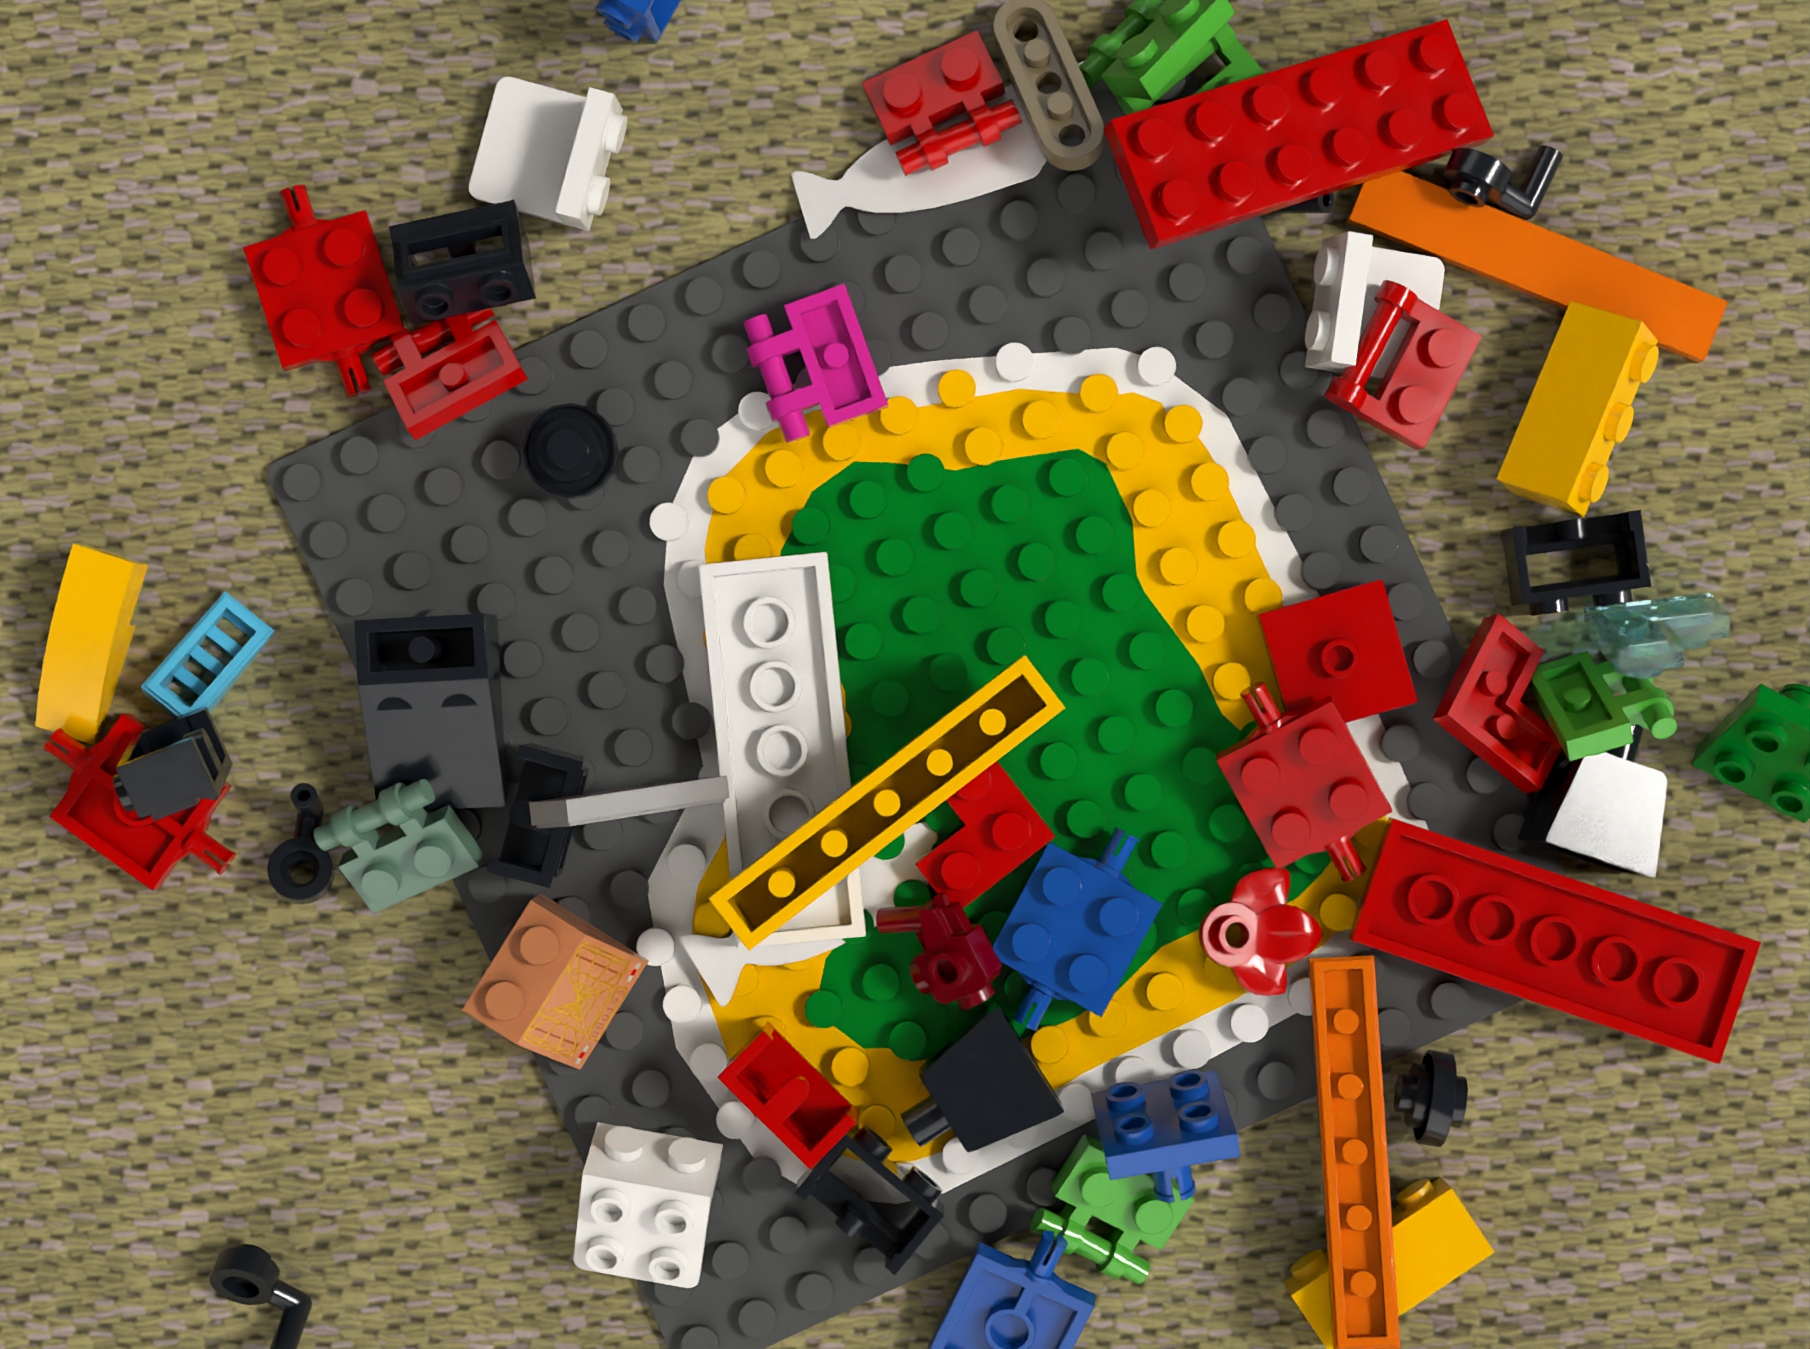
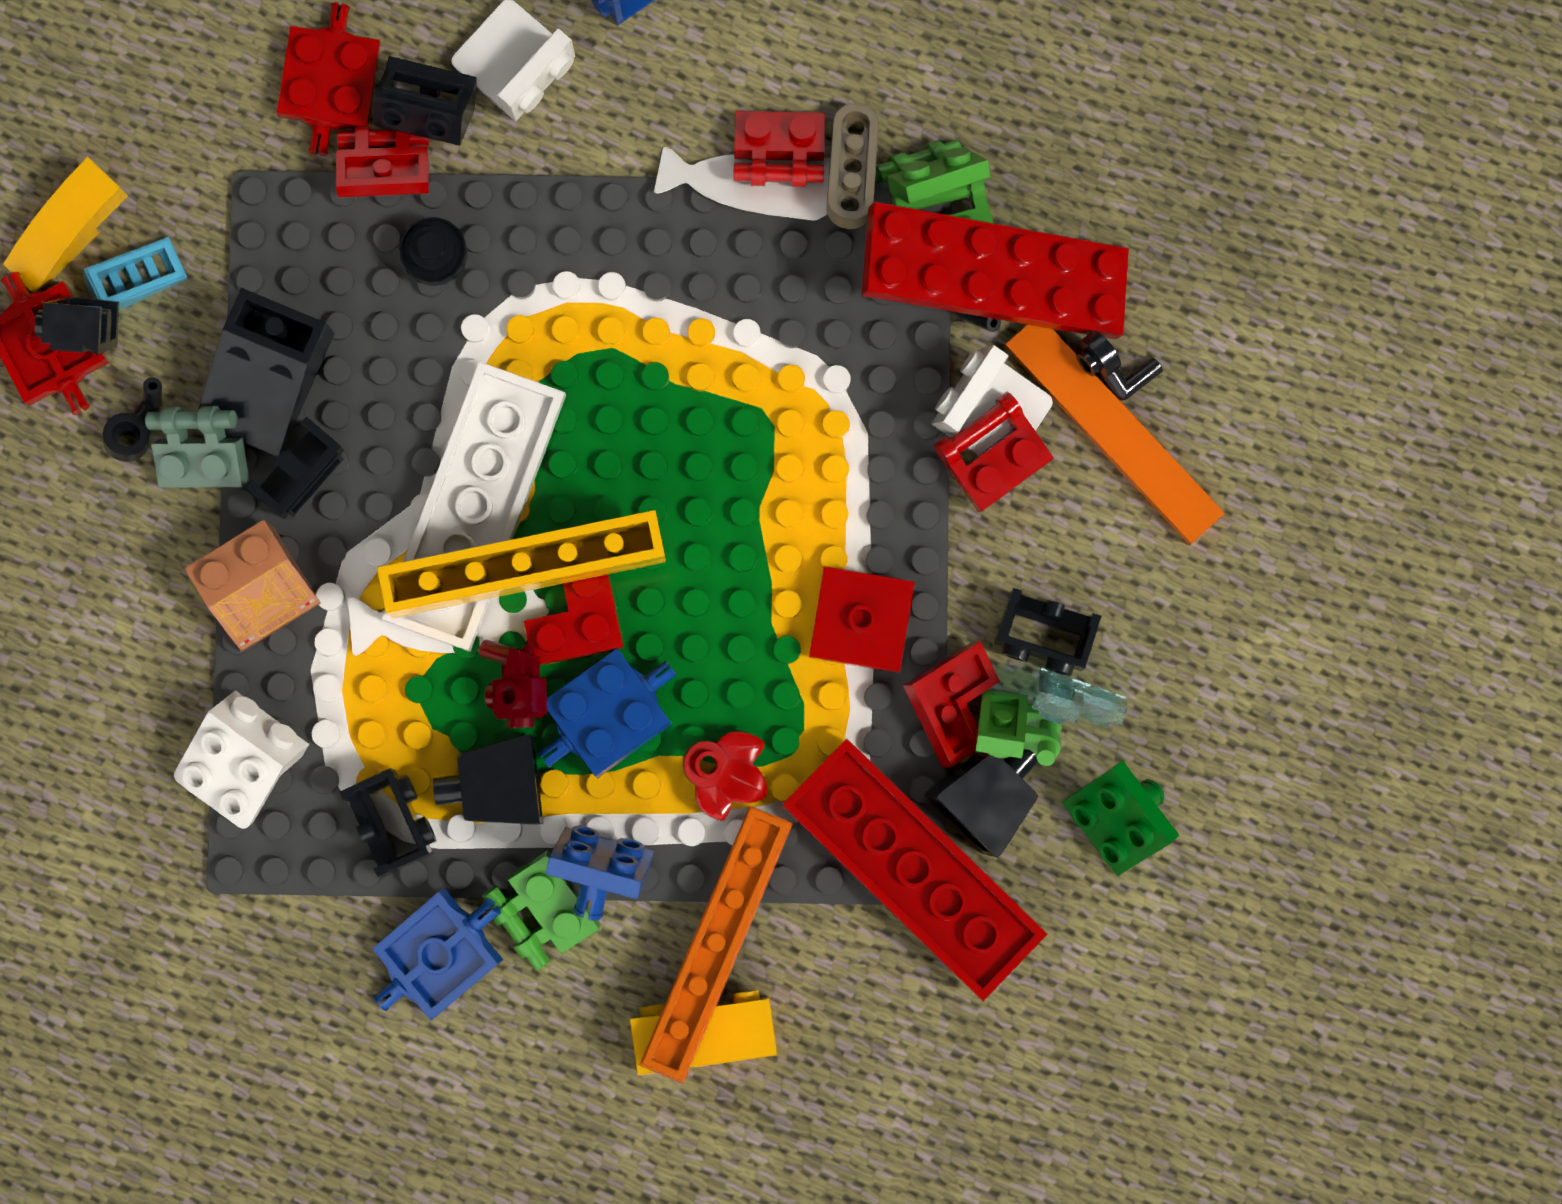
camera: 25 degrees right, 5 degrees down
(628, 802) = (358, 485): light grey tile -> none
(789, 1095) = (366, 726): red window -> none
(833, 354) = (631, 274): dark pink plate -> none
(1303, 782) = (800, 687): red plate -> none
(1432, 1098) = (785, 935): black plate -> none
(1579, 409) = (1093, 533): yellow brick -> none

